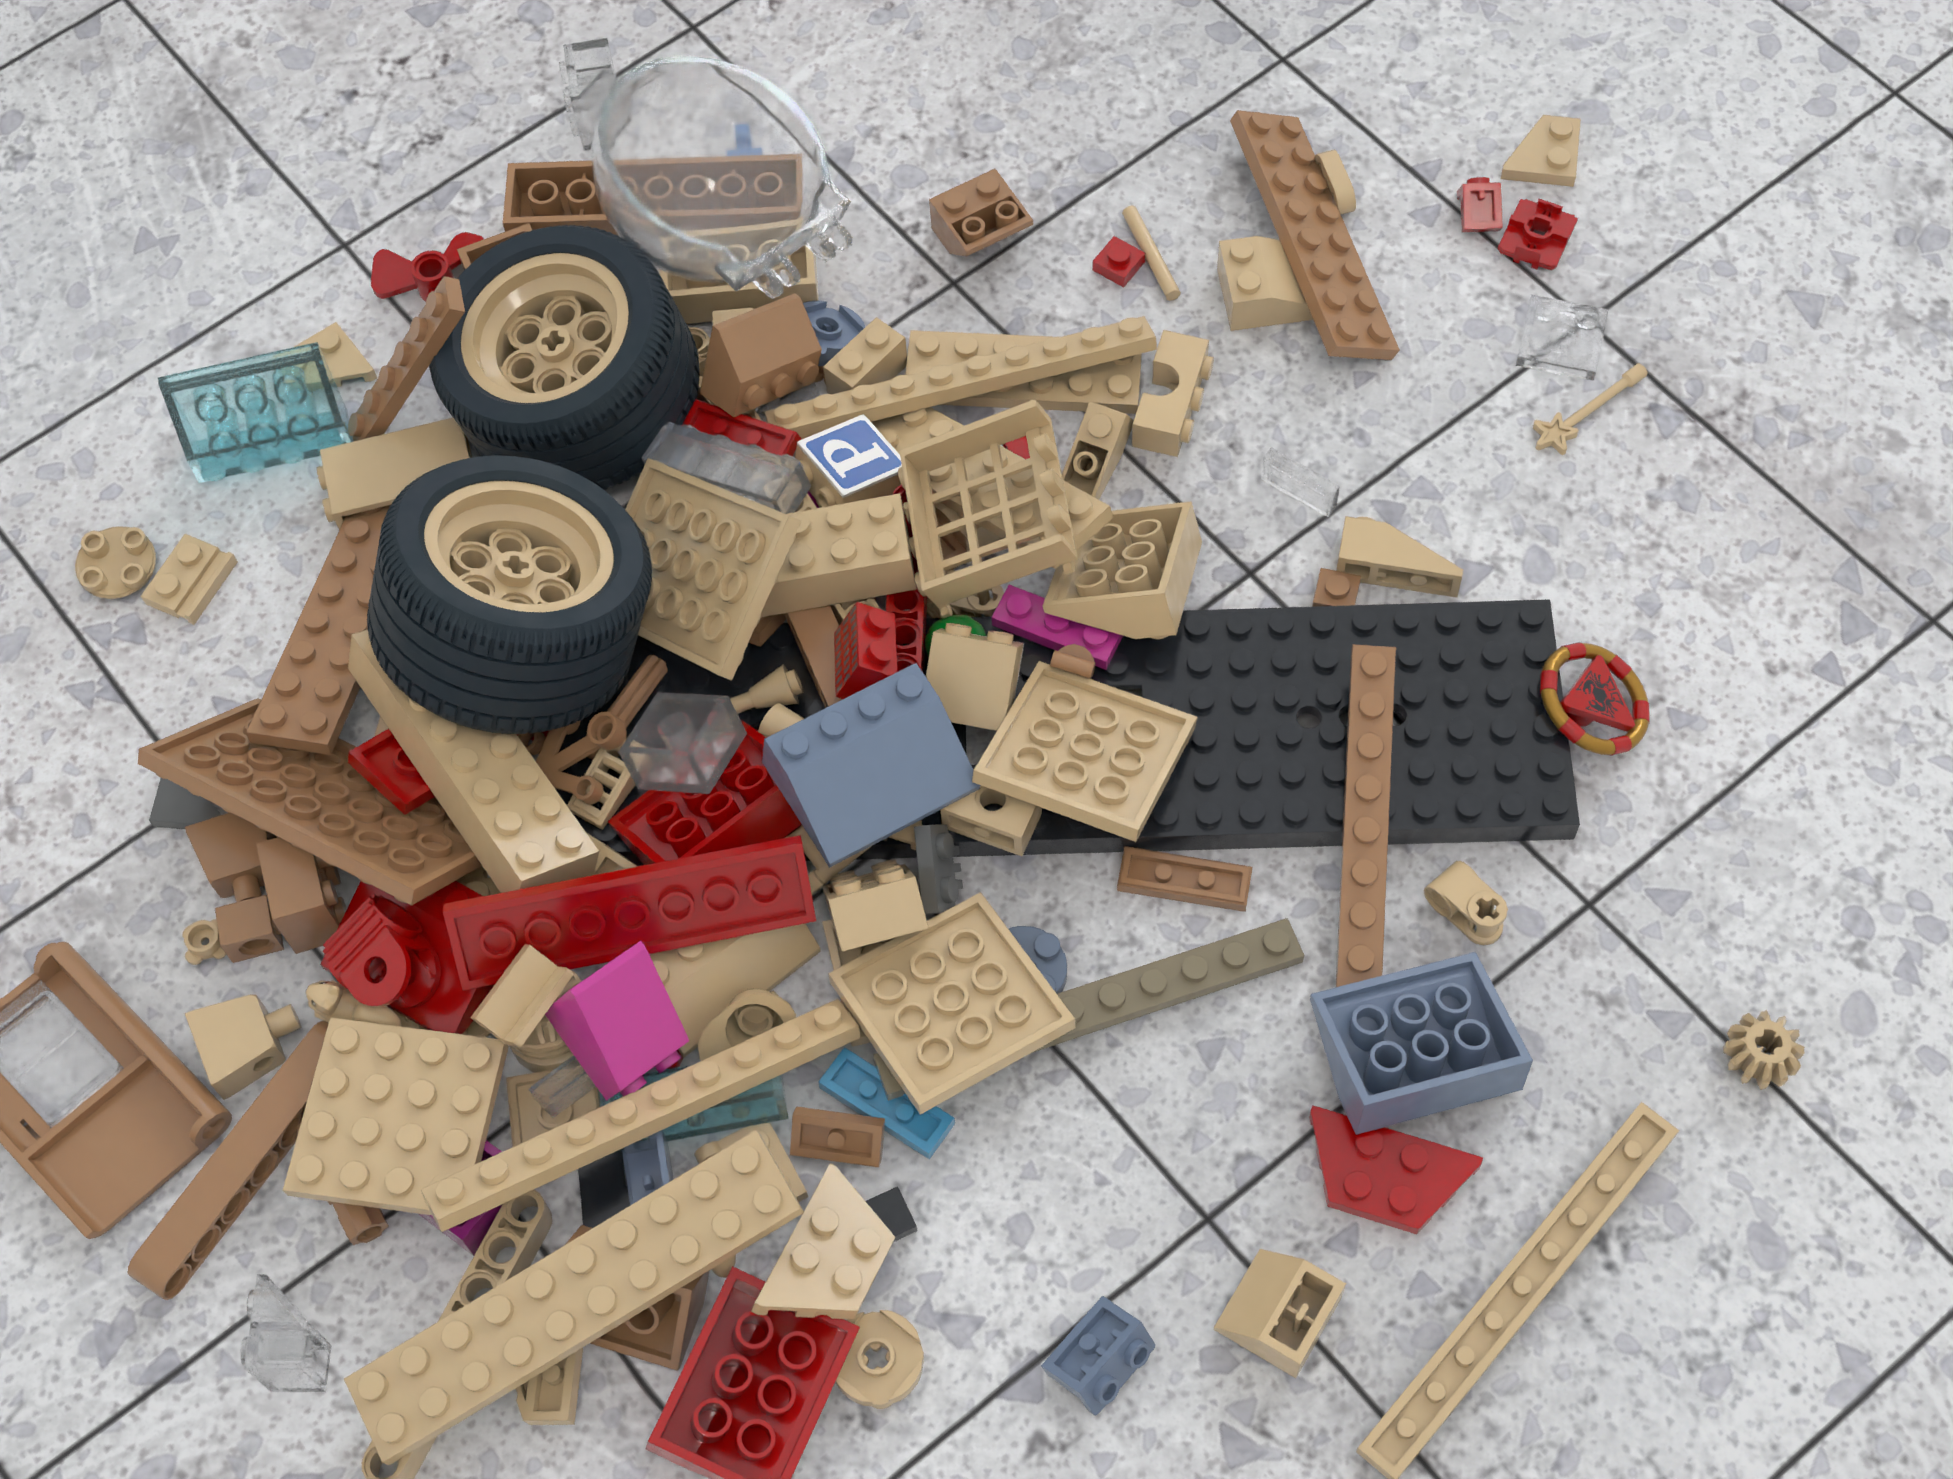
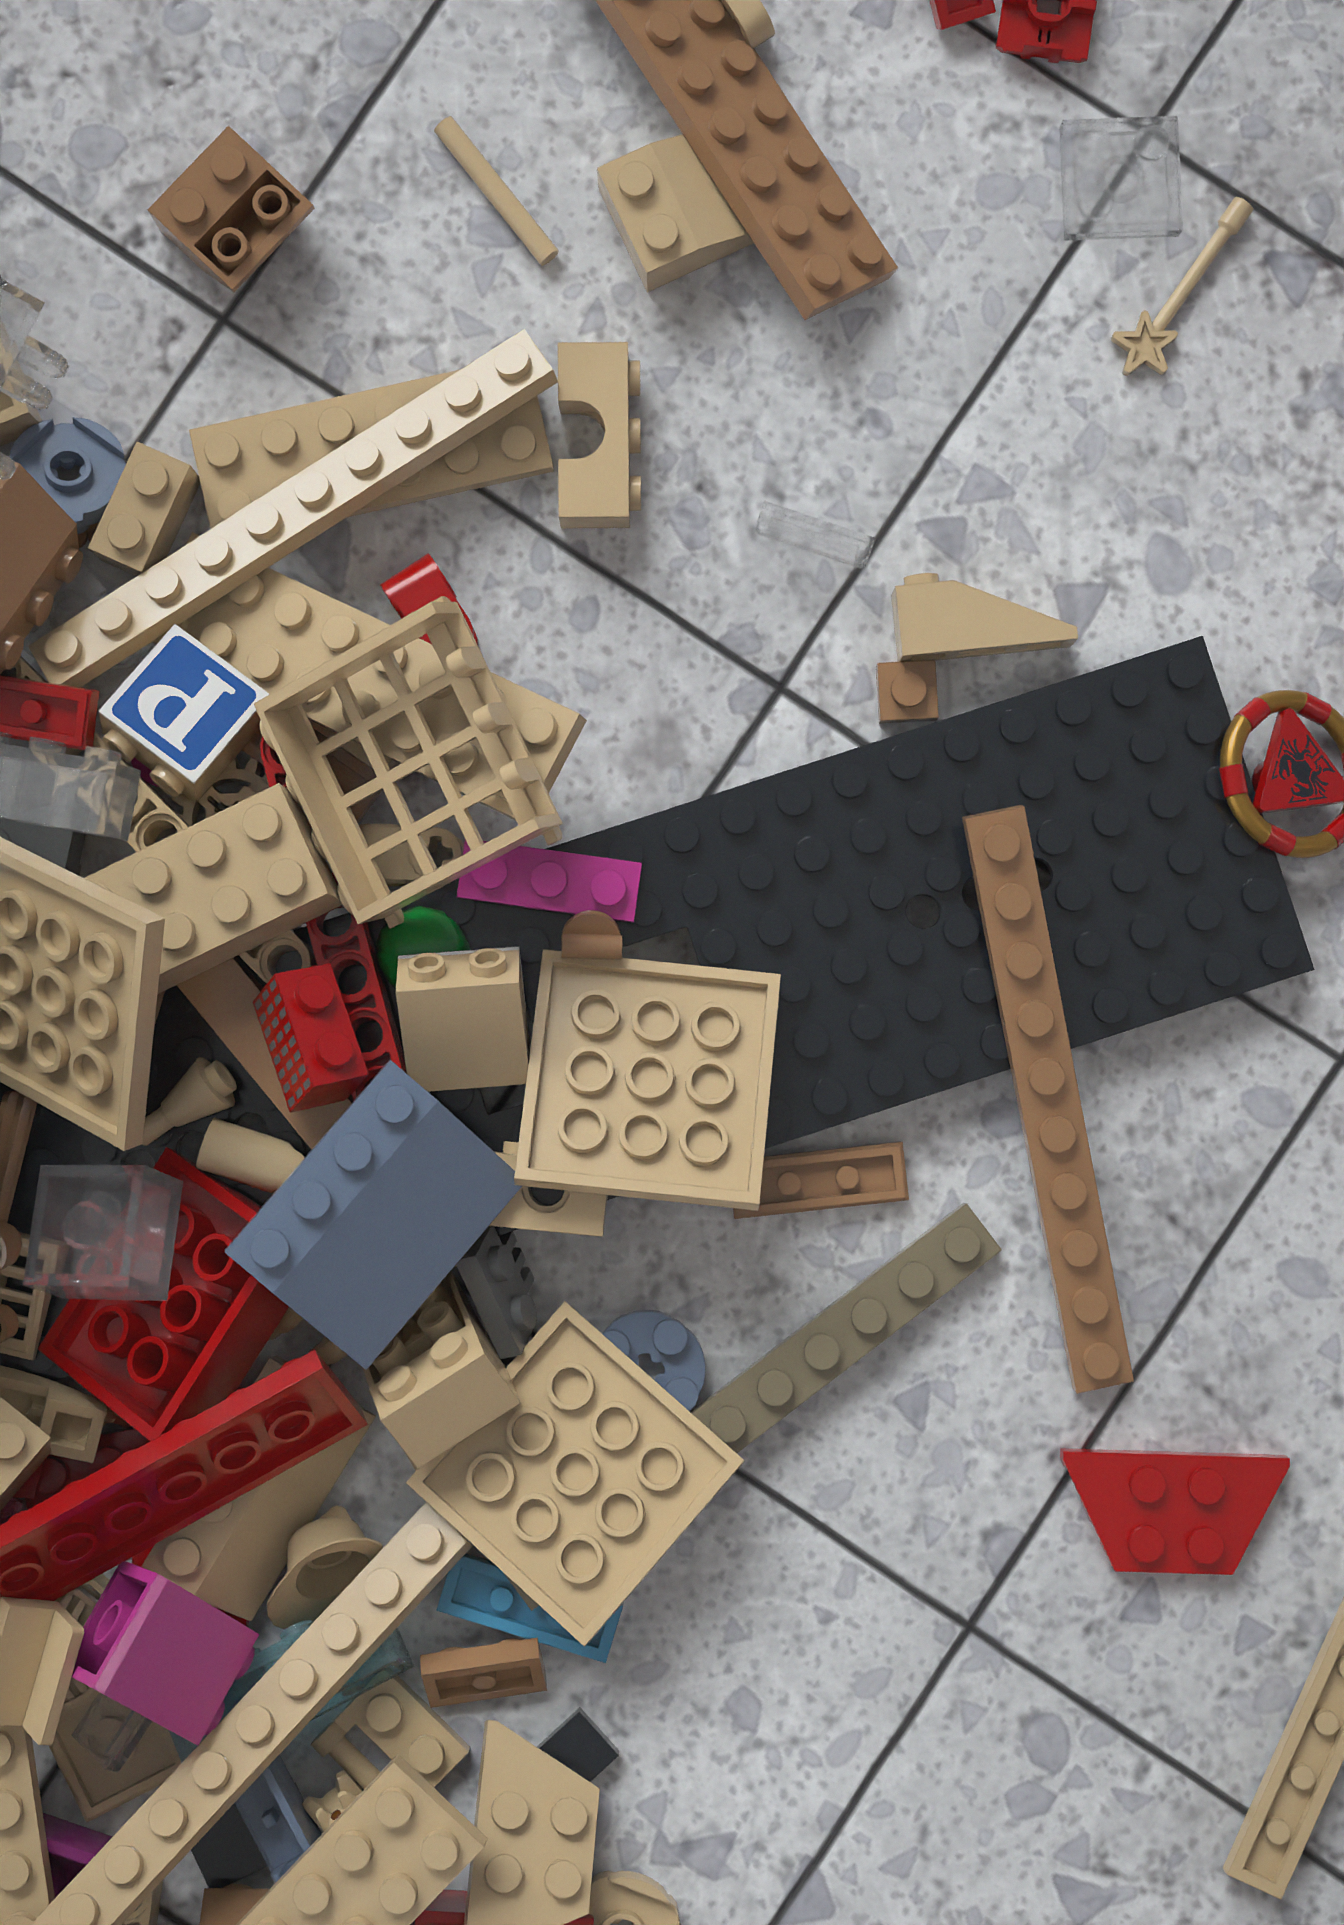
camera: 20 degrees left, 25 degrees up
(1097, 449) = (515, 582): tan slope -> none
(1100, 1354) = (888, 1850): sand blue bracket -> none
(1118, 261) = (454, 220): red plate -> none
(1132, 573) = (640, 773): tan slope -> none
(1281, 1309) = (1094, 1736): tan slope -> none
(1419, 1042) = (1179, 1340): sand blue slope -> none
(1468, 903) = (1183, 1110): tan piece -> none

